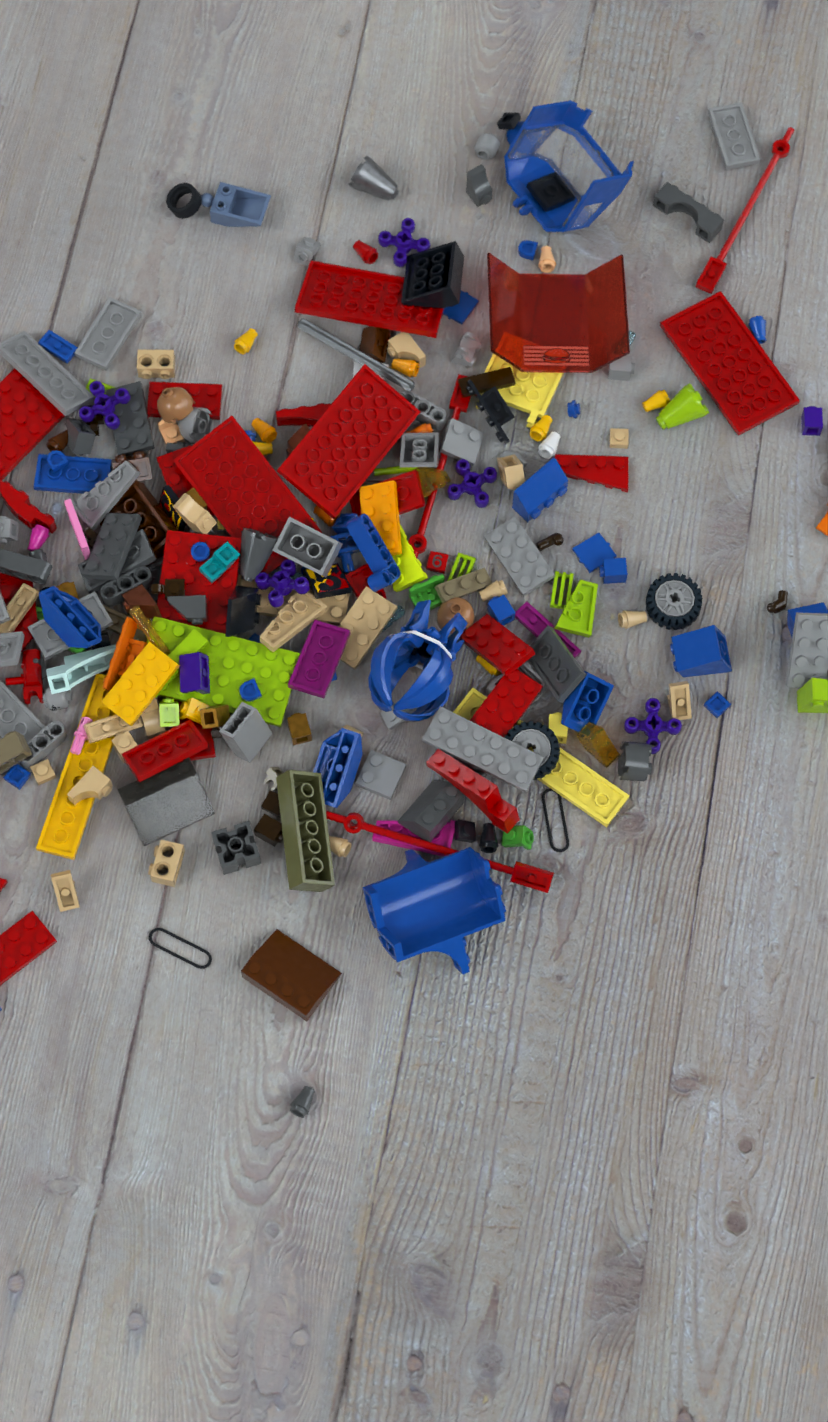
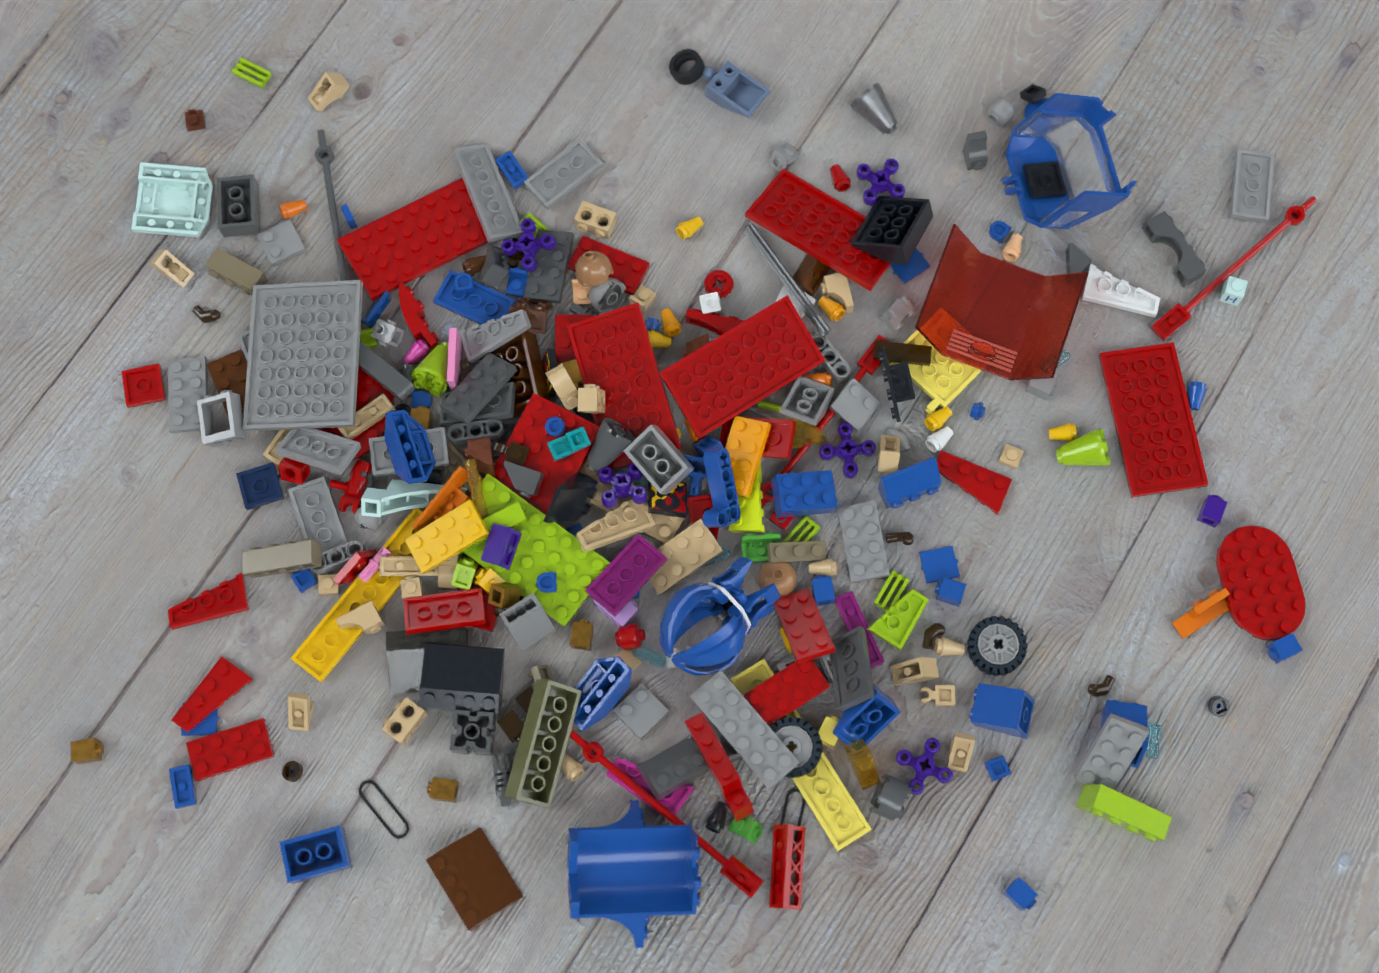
camera: 25 degrees right, 5 degrees up
(59, 577) = (421, 398): none -> blue tile
(61, 745) = (354, 566): none -> red wing
(62, 547) = (432, 371): none -> lime cone
(80, 946) = (292, 771): none -> dark brown tile
(105, 444) = (516, 282): none -> blue bracket
(135, 1007) = (315, 854): none -> blue brick
(205, 802) = (462, 678): none -> black slope
(224, 516) = (591, 399): none -> tan brick
(227, 412) = (644, 297): none -> tan bracket
(229, 908) = (443, 789): none -> pearl gold brick
(279, 878) = (501, 778): none -> dark grey hinge
(294, 374) = (722, 277): none -> red gear
(295, 398) = (710, 303): none -> white bracket
(329, 702) = (624, 617): none -> lavender arch
(344, 713) = (630, 636): none -> red head
(364, 724) = (653, 658): none -> clear light blue piece
(449, 533) = (804, 493): none -> blue brick
(465, 831) = (697, 801): black plate -> none
(565, 856) = (783, 866): none -> red fence
(606, 249) = (1076, 259): none -> dark grey slope
(610, 649) = (914, 671): none -> tan slope
(611, 612) = (930, 633): none -> dark brown arm
(643, 660) = (942, 695): none -> tan plate
(646, 267) = (1117, 293): none -> white wing
(754, 230) = (1233, 291): none -> light aqua brick
(781, 800) = (1020, 894): none -> blue brick

